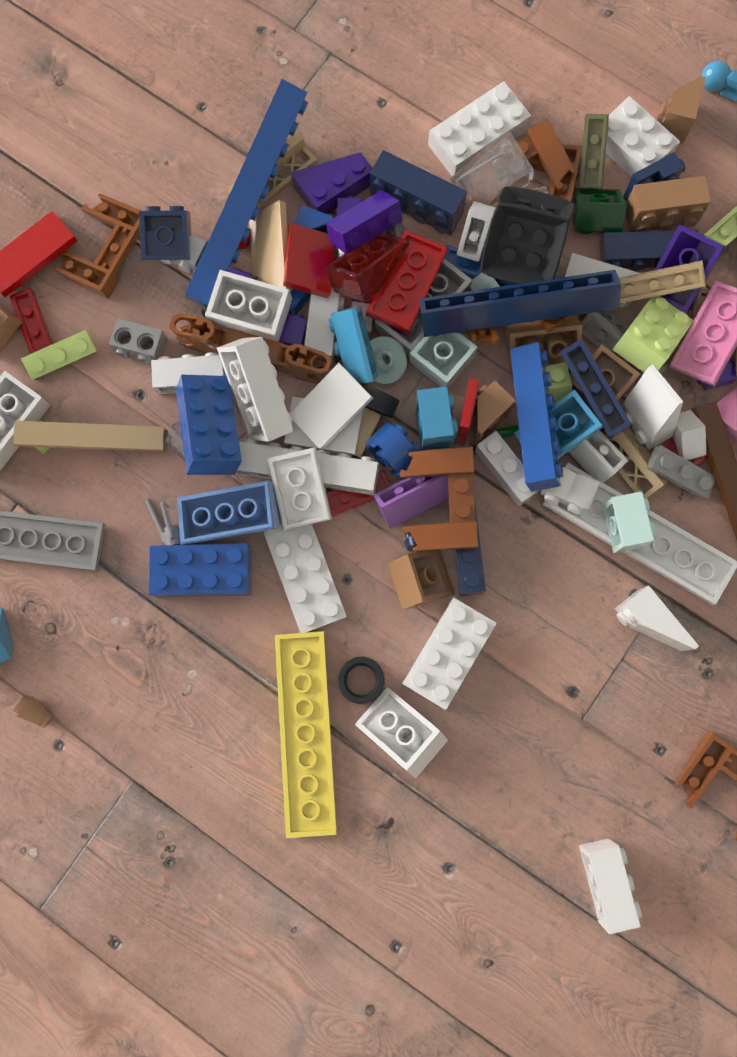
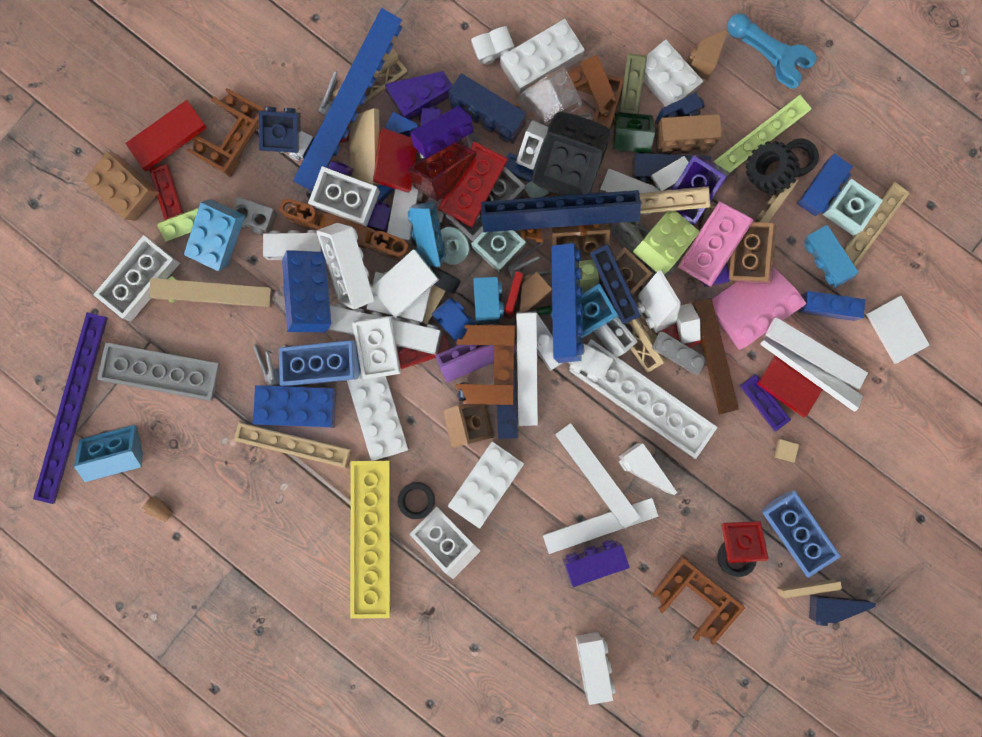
camera: 10 degrees left, 5 degrees up
(91, 365) = (214, 234): none -> dark azure brick
(200, 619) = (292, 444): none -> tan tile
(221, 200) = (326, 103): none -> light grey plant
(416, 120) = (492, 45): none -> white brick
(463, 381) = (518, 266): none -> light grey plant
(491, 502) = (527, 368): none -> white tile
(591, 635) = (597, 476): none -> white tile
(599, 698) = (595, 527): none -> white tile
(599, 745) = (595, 562): none -> dark purple brick
(628, 522) = (633, 392): light aqua brick -> none
(649, 254) = (670, 174): none -> white tile

